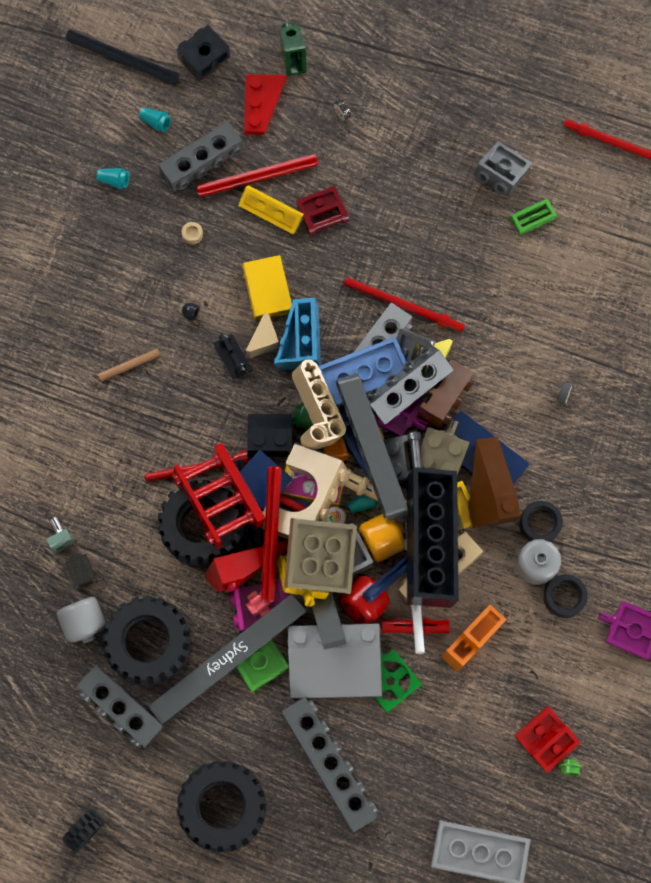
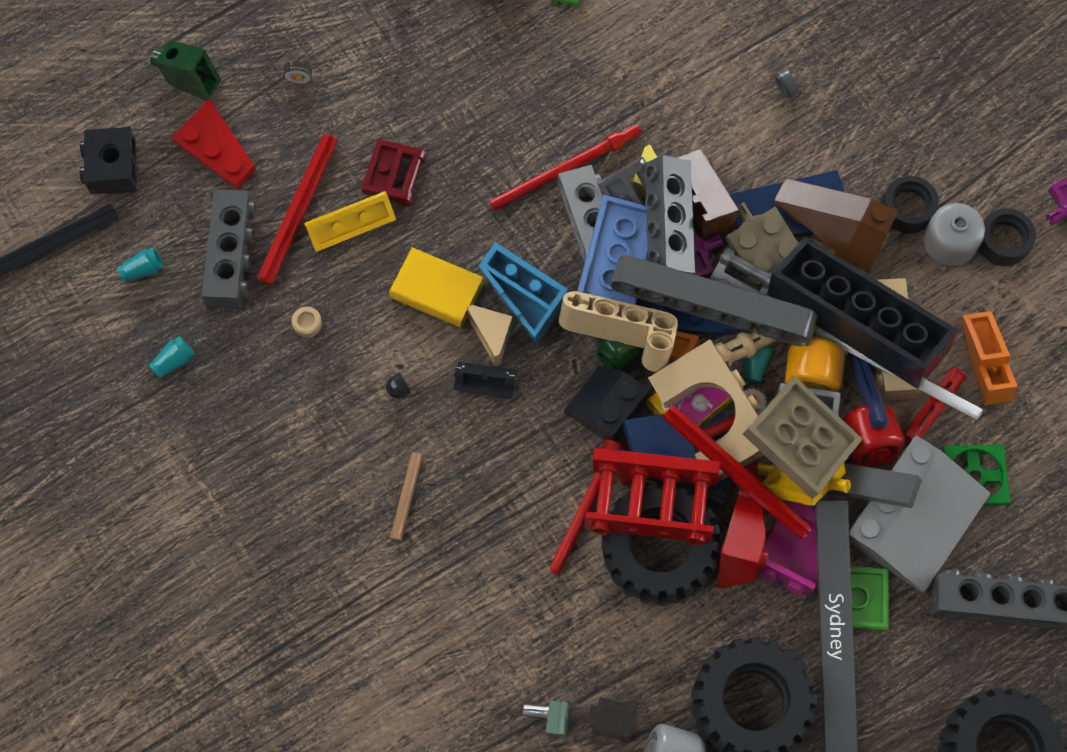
camera: 50 degrees left, 5 degrees down
(256, 605) = (796, 550): coral gear -> none

